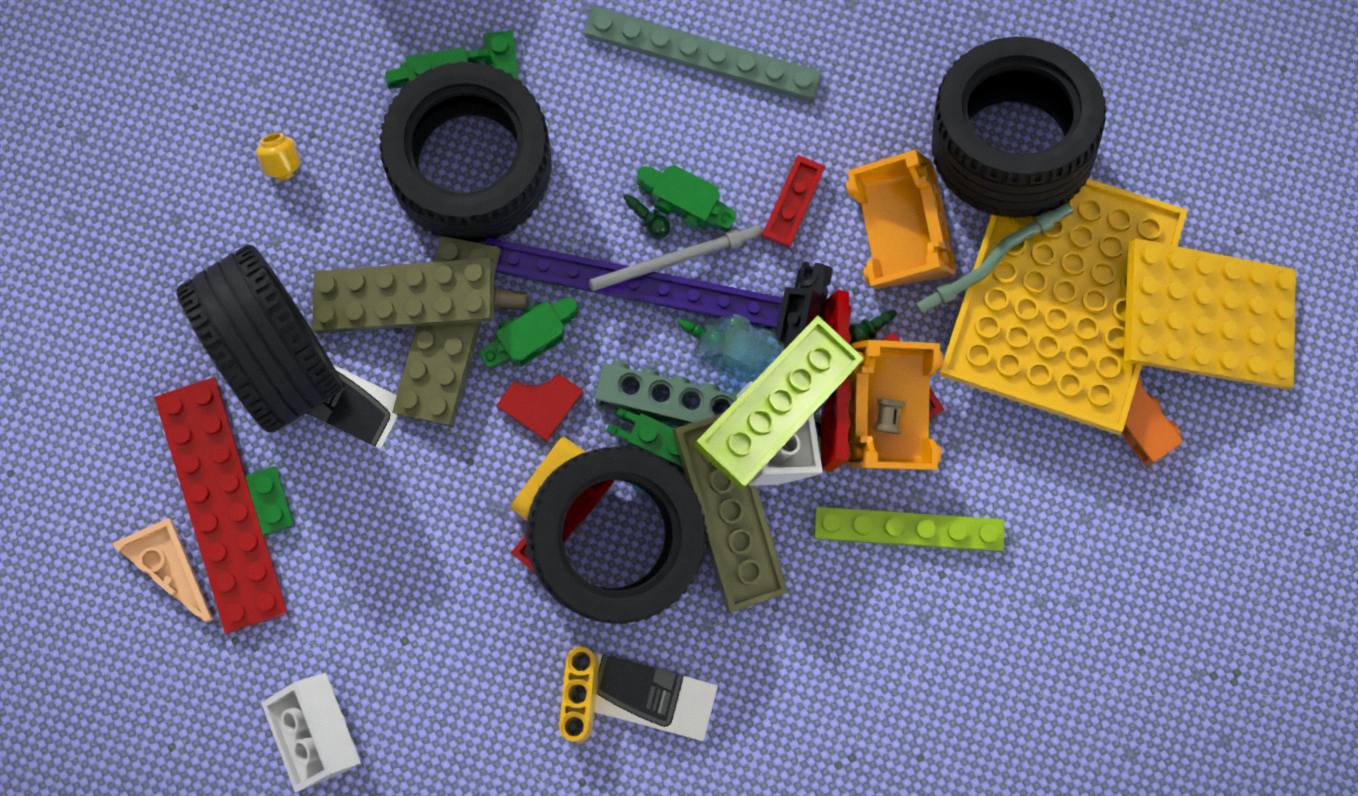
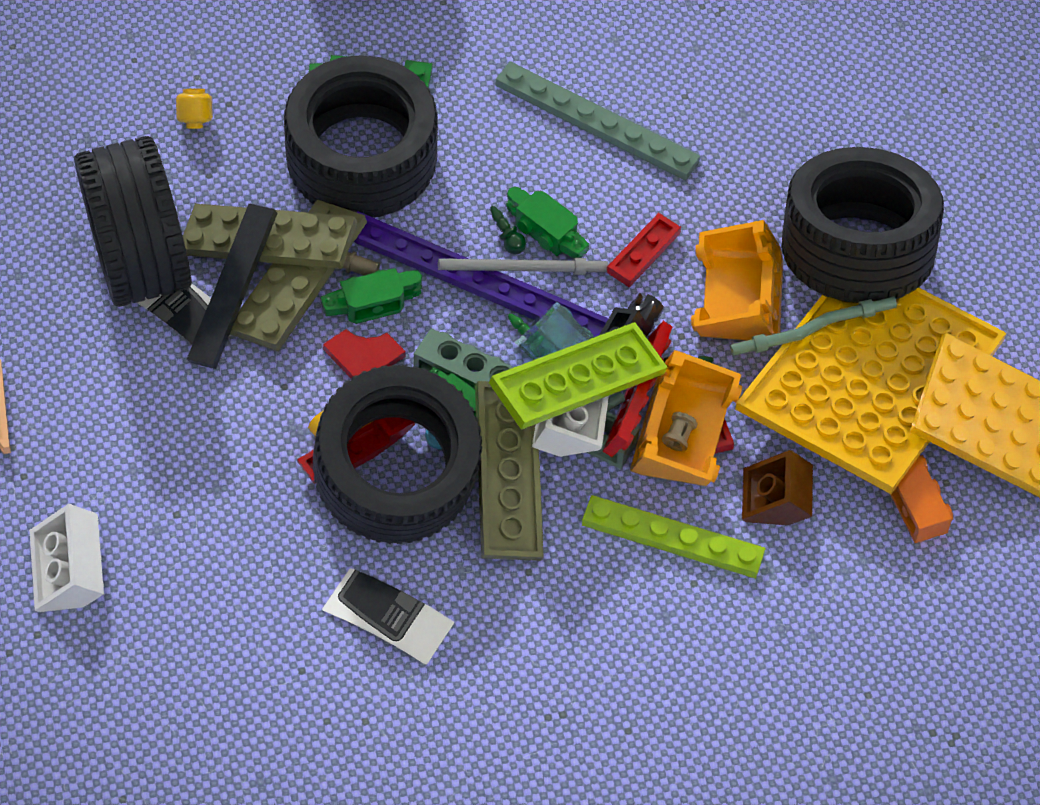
camera: 15 degrees right, 20 degrees down
(220, 505) = (49, 366): red plate -> none
(270, 500) = (94, 372): green plate -> none
(384, 368) = (232, 286): none -> black tile
(572, 680) = (324, 603): yellow beam -> none
(1000, 451) = (778, 490): none -> reddish brown slope

